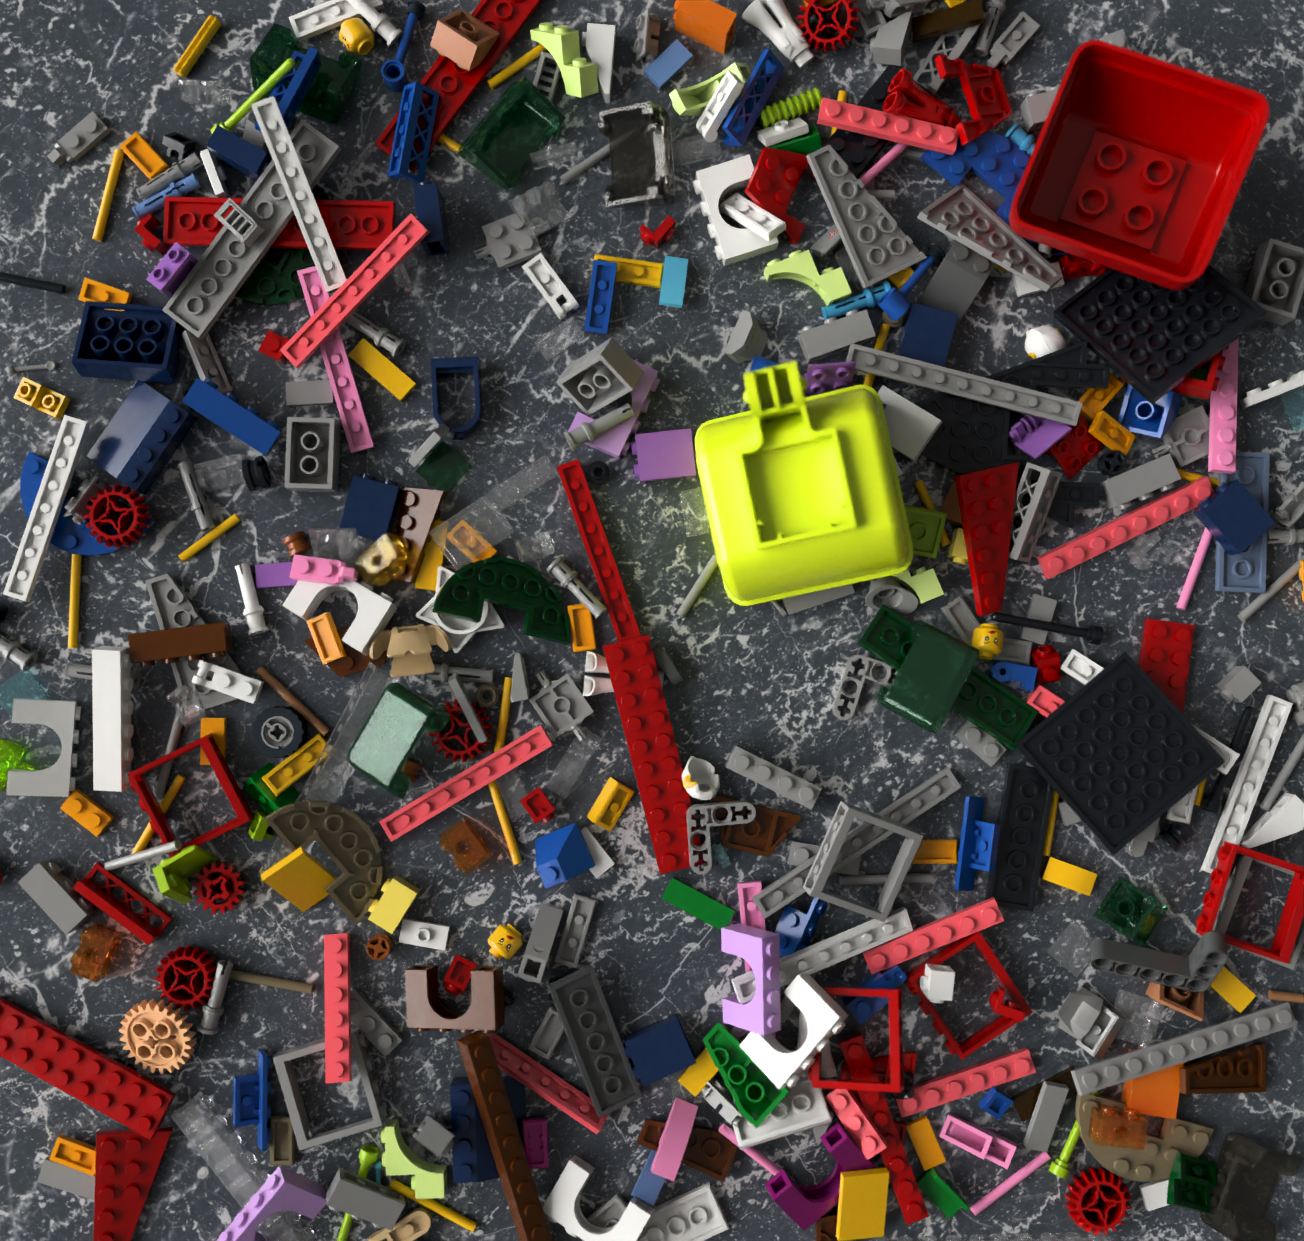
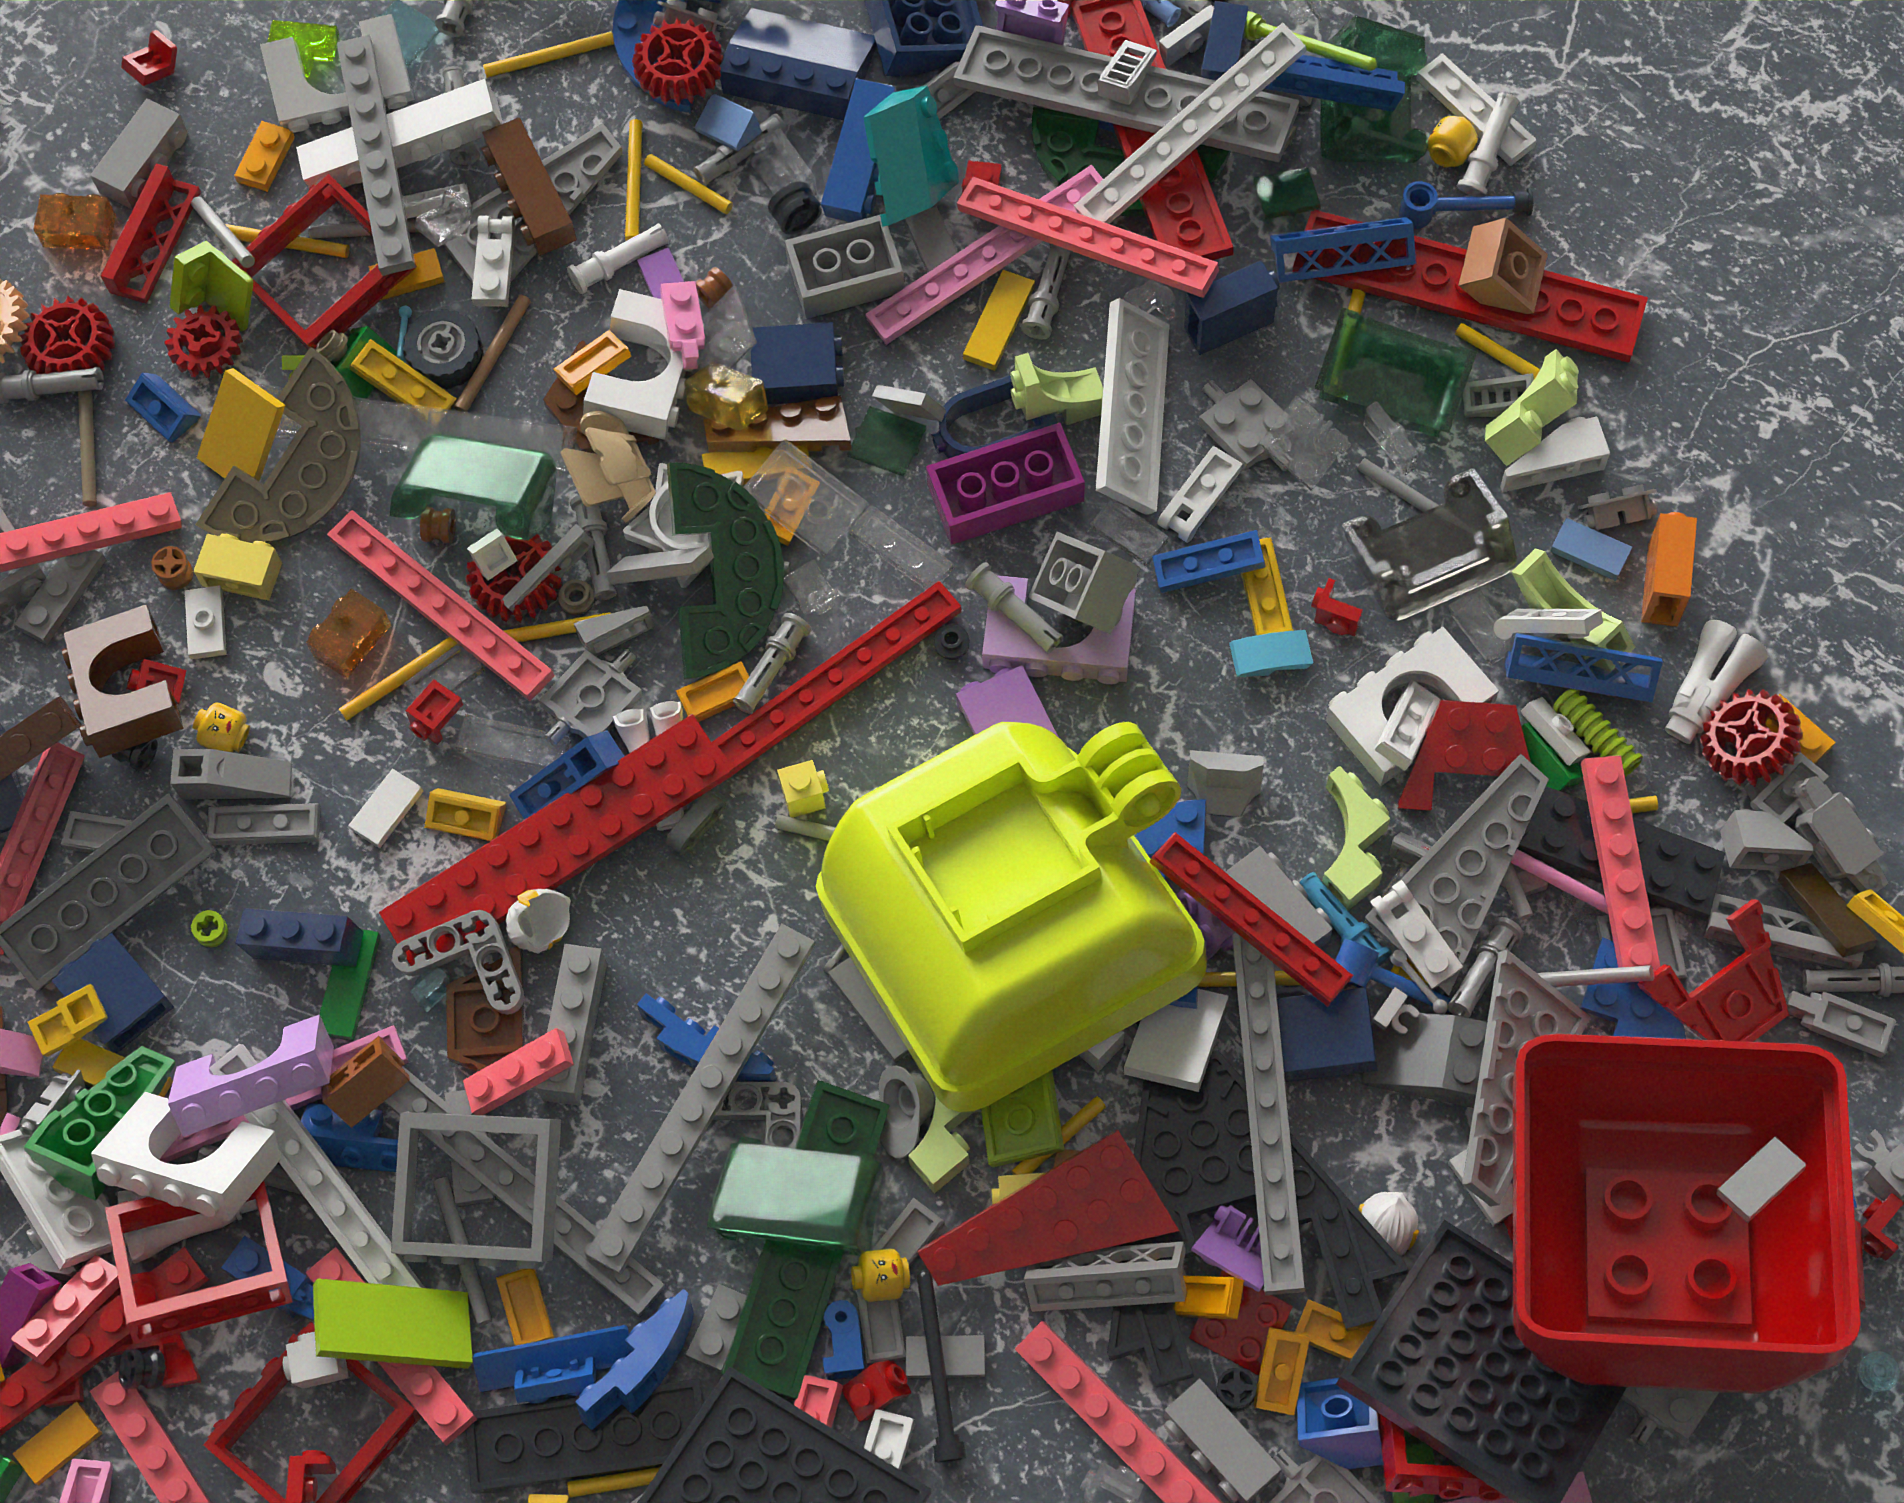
camera: 80 degrees right, 20 degrees down
(122, 738) = (376, 155): none -> light grey plate
(164, 710) = (425, 201): none -> white plate
(176, 498) = (728, 123): none -> medium blue slope
(193, 572) = (633, 179): none -> yellow bar
(241, 749) = (404, 312): none -> medium azure hinge
(251, 384) = (910, 153): none -> teal wedge
(255, 804) = (333, 346): none -> dark tan plate
(256, 925) = (162, 406): none -> blue slope
(356, 155) = (1286, 193): none -> clear green piece
(449, 741) = (492, 554): none -> white tile
(455, 349) = (1043, 392): none -> yellowish green arch
(478, 306) = (1132, 407): none -> white plate
(491, 636) = (660, 565): none -> light grey tile
(505, 403) = (1005, 483): none -> magenta brick
(562, 855) = (368, 765): blue slope -> none
(612, 733) = (567, 773): none -> blue slope
(627, 982) = (216, 936): none -> lime bush
(664, 927) = (299, 937): none -> dark blue brick
(667, 593) = (803, 788): none -> light yellow brick
(675, 1082) = (68, 1021): none -> yellow slope
(777, 910) = (364, 1082): none -> dark orange hinge
(798, 817) = (518, 1072): none -> coral plate
(819, 696) = (688, 1044): none -> blue slope
(848, 712) = (700, 1099): none -> light grey plate
(860, 350) = (1251, 919): none -> red tile
(890, 260) = (1417, 936): none -> white plate
(896, 277) = (1399, 959): none -> light grey hinge
(909, 223) = (1502, 937): none -> light grey pin
(913, 102) = (1677, 927): red piece -> none
(926, 293) = (1392, 1009): none -> white tile
(929, 933) = (392, 1324): none -> lime tile
(947, 170) = (1599, 976): none -> light grey bar
(987, 784) = (652, 1353): none -> slope
(1062, 455) = (1211, 1297): none -> light orange tile
(1152, 113) = (1761, 1179): none -> light grey tile

